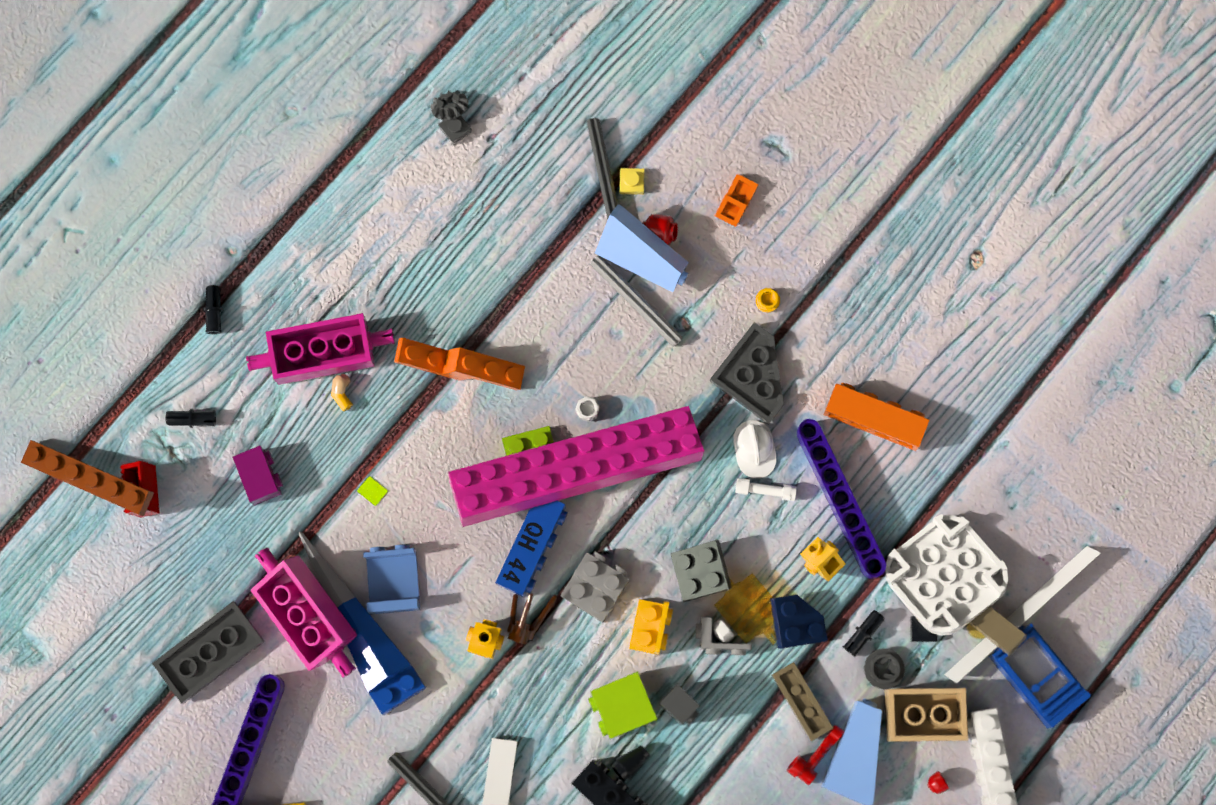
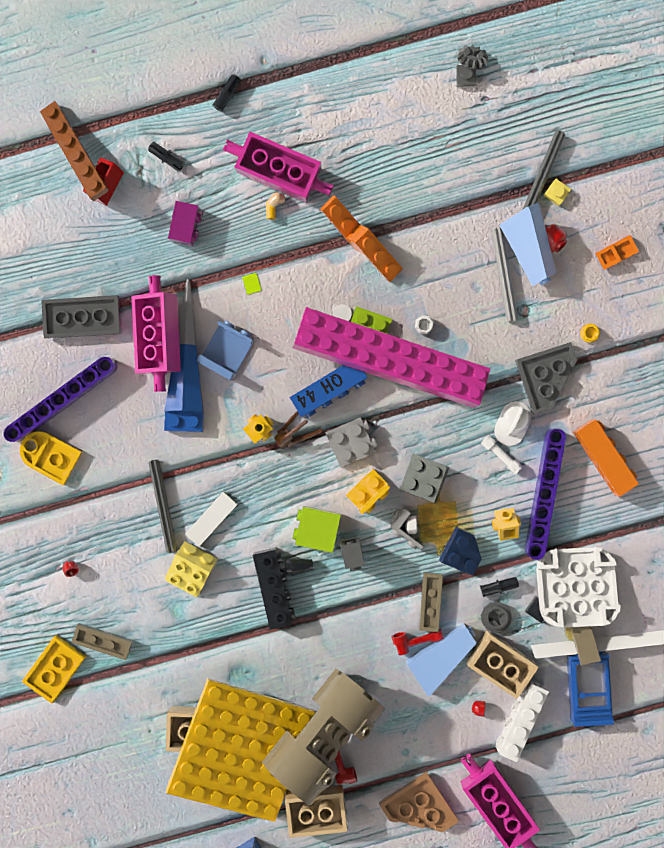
camera: 30 degrees right, 10 degrees up
(491, 452) = (343, 312): none -> white tile

